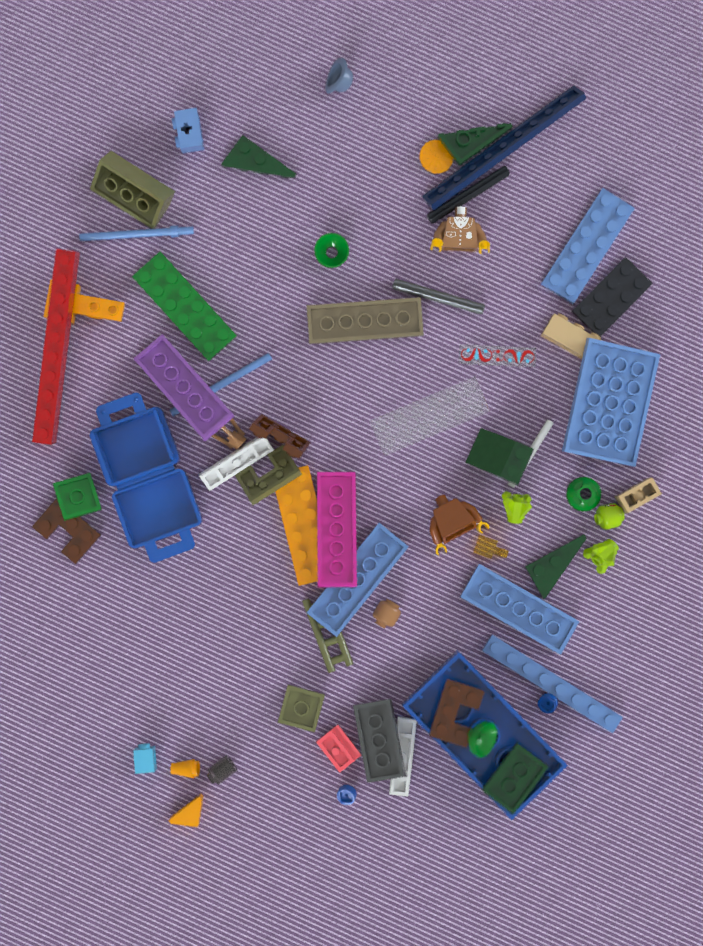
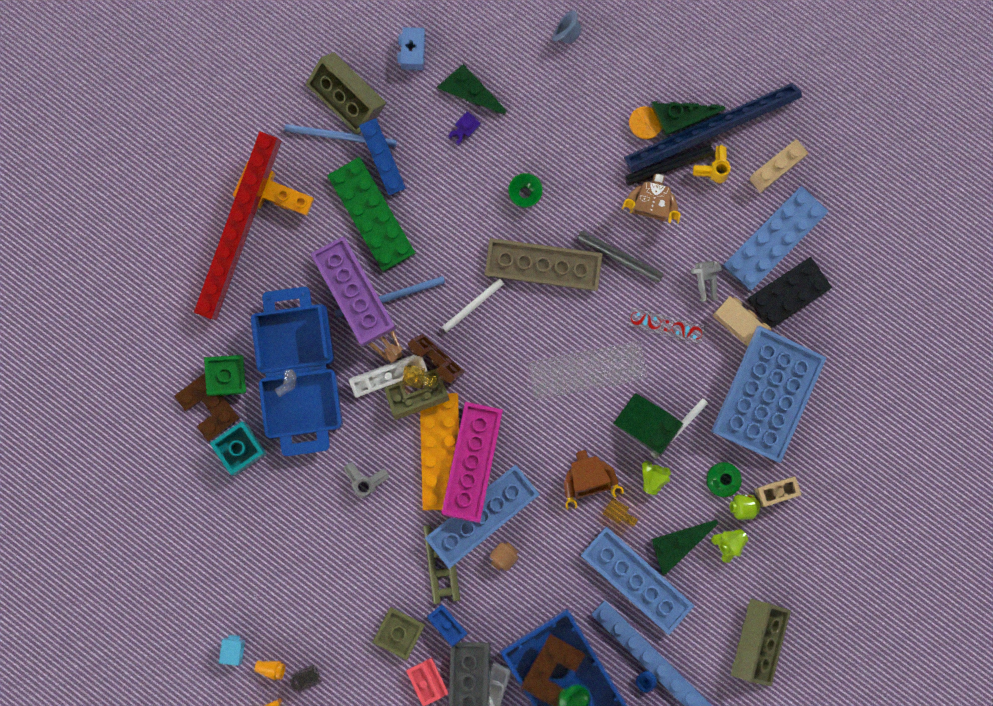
camera: 15 degrees right, 5 degrees down
(106, 565) = (238, 448): none -> teal brick
(141, 491) = (289, 383): none -> clear arm
(183, 246) = (382, 156): none -> blue plate
(228, 569) = (357, 479): none -> light grey axle
(259, 198) = (465, 126): none -> dark purple plate
(264, 459) = (415, 377): none -> clear yellow plate
(304, 375) = (471, 306): none -> white bar
(346, 691) = (447, 625): none -> blue plate
(517, 183) = (719, 164): none -> yellow axle
(527, 293) = (707, 271): none -> light grey piece
(576, 173) = (778, 166): none -> tan brick
(649, 643) = (760, 642): none -> olive slope

